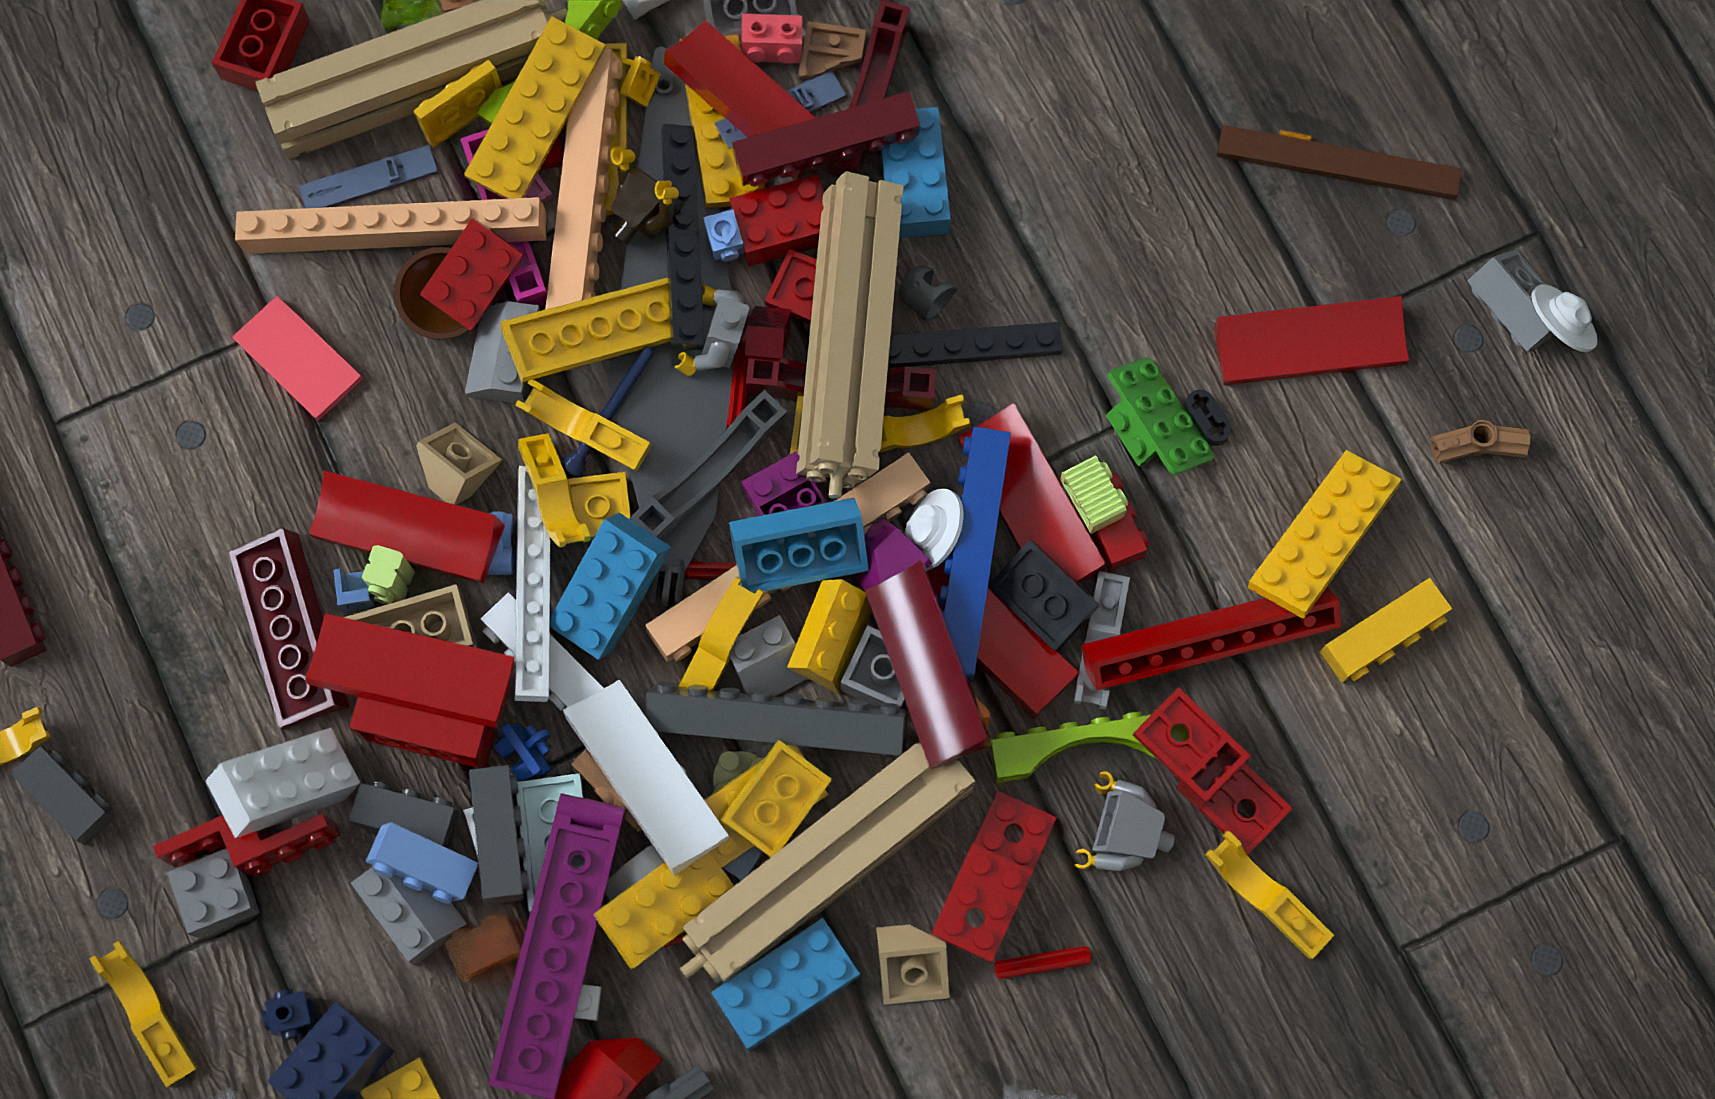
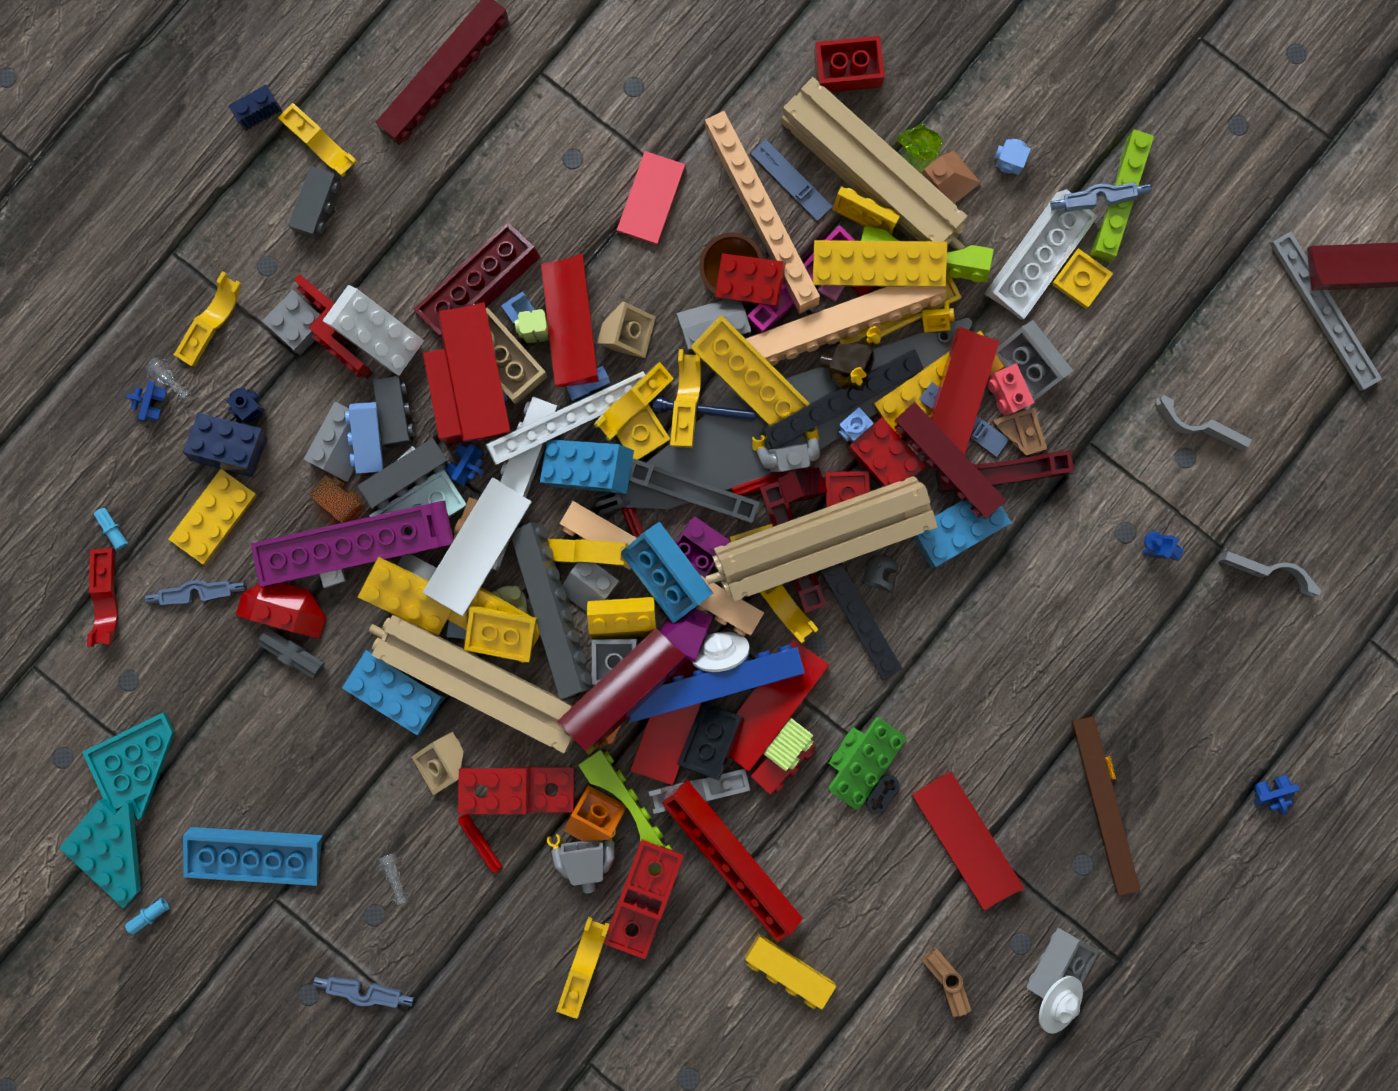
camera: 65 degrees right, 10 degrees up
(1075, 790) = (594, 816): none -> orange slope
(1324, 534) = (834, 905): yellow plate -> none

